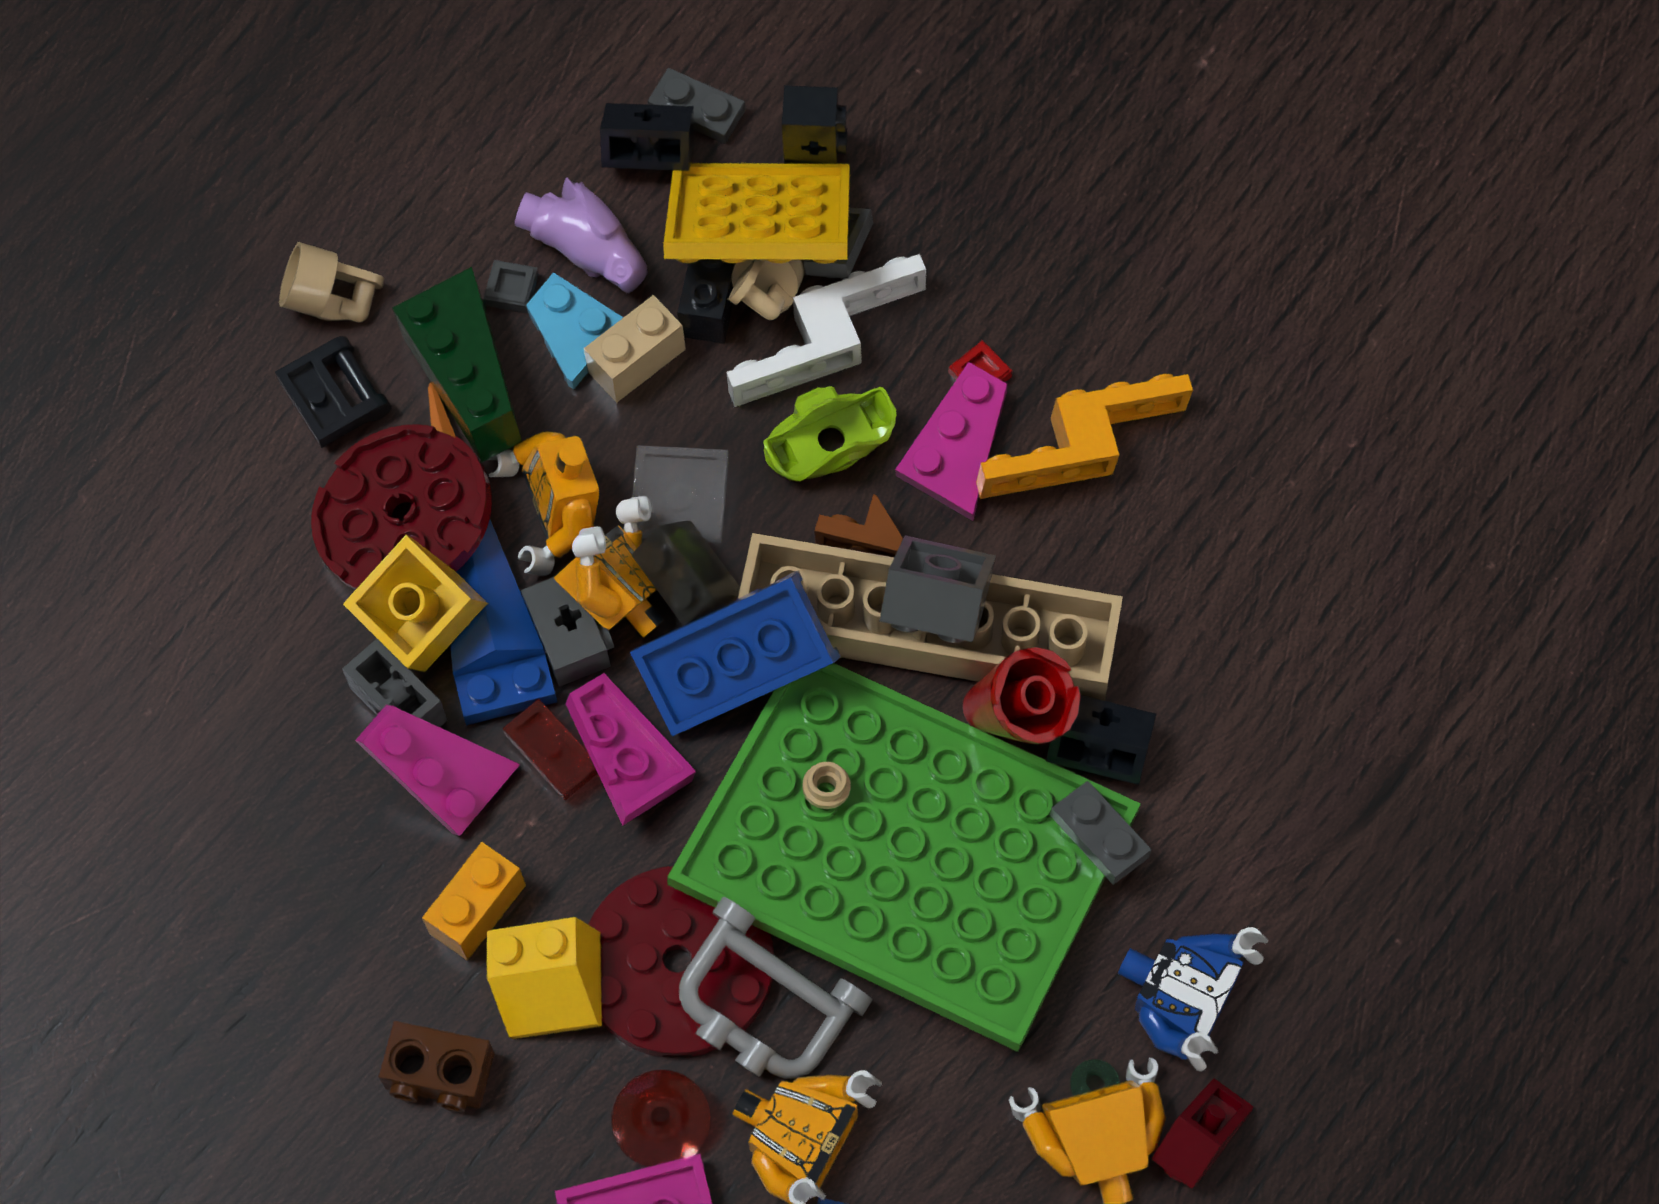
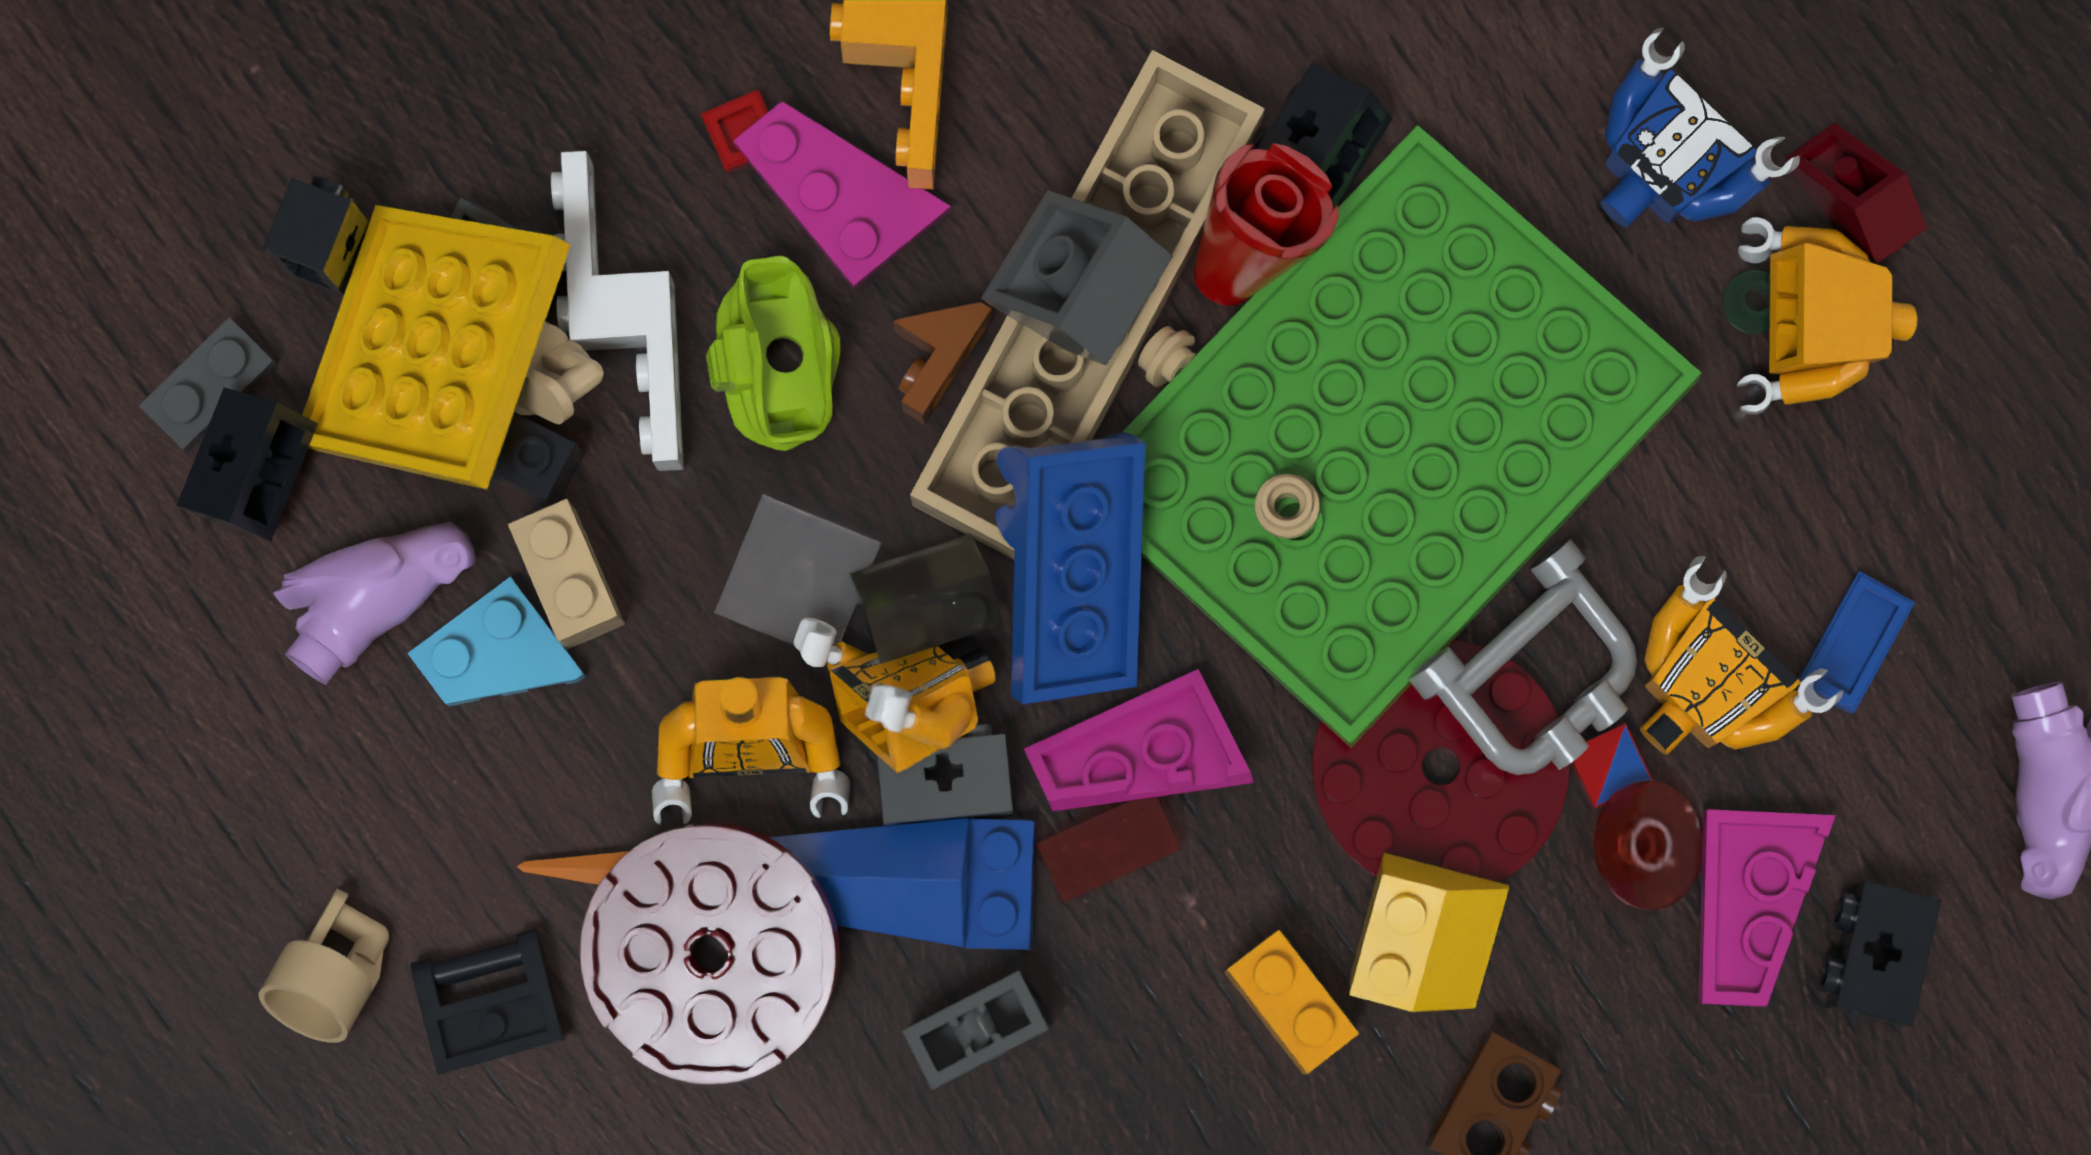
camera: 75 degrees left, 15 degrees up
(414, 604) = (872, 968): yellow slope -> none
(436, 766) = (1099, 1001): dark pink wing -> none
(459, 355) = (504, 813): dark green wedge -> none
(510, 286) = (404, 717): dark grey tile -> none
(716, 1078) = (1609, 765): none -> tile
(915, 683) = (1166, 355): none -> tan plate
(1100, 832) = (1448, 185): dark grey plate -> none

